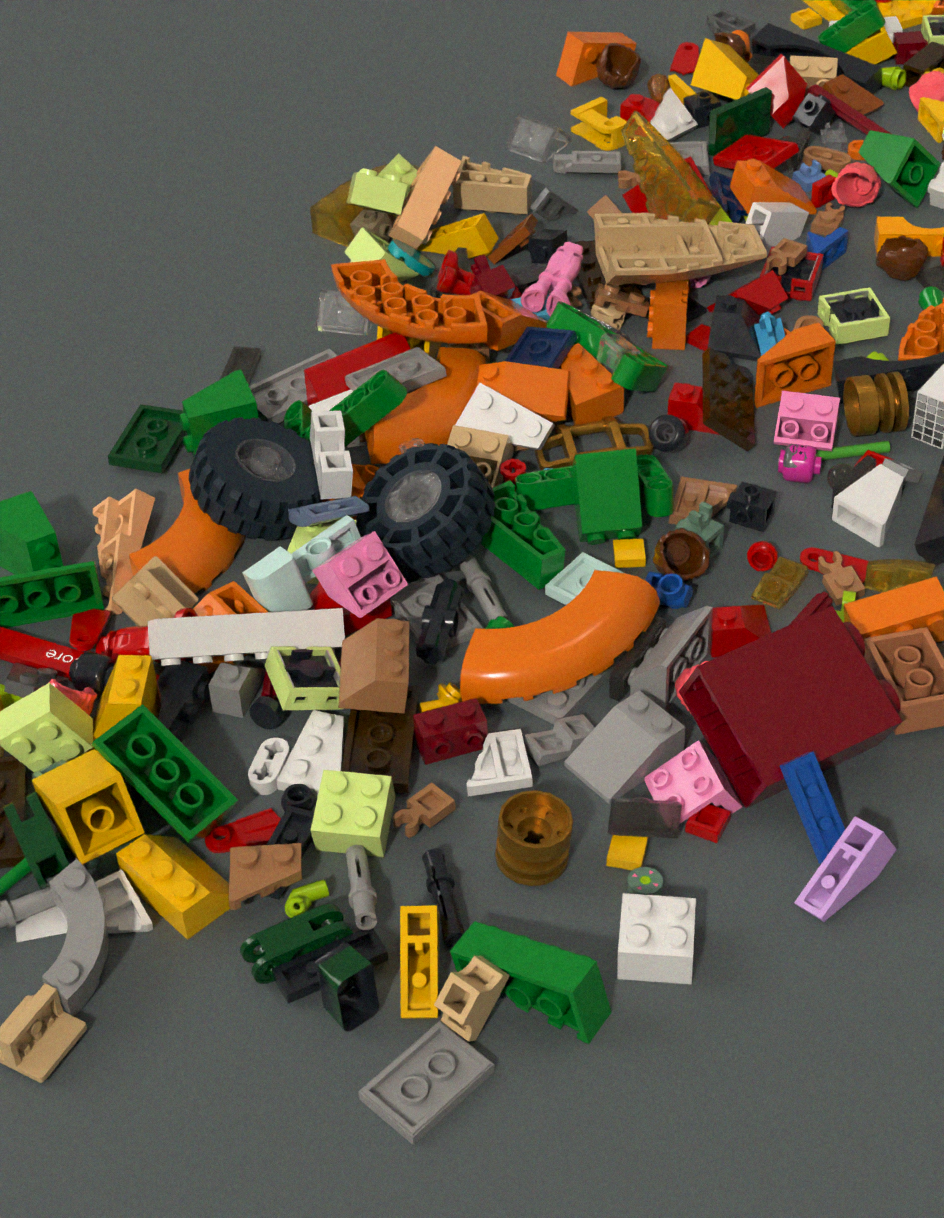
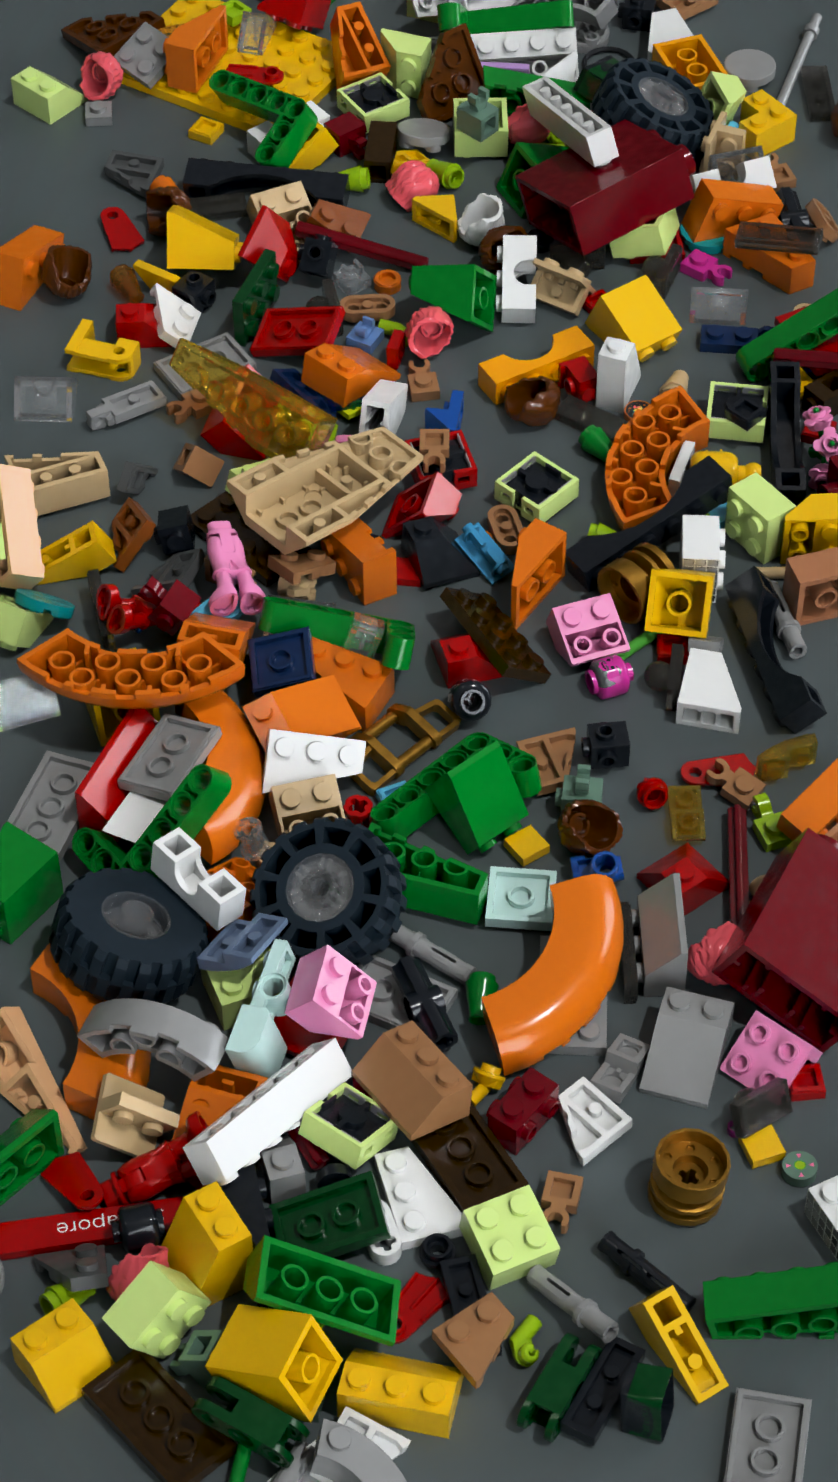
camera: 35 degrees left, 5 degrees up
(212, 541) = (151, 1026): none -> light grey brick
(235, 736) = (333, 1217): none -> dark green plate
(470, 997) = (759, 1351): tan brick -> none
(897, 428) = (679, 602): none -> yellow slope

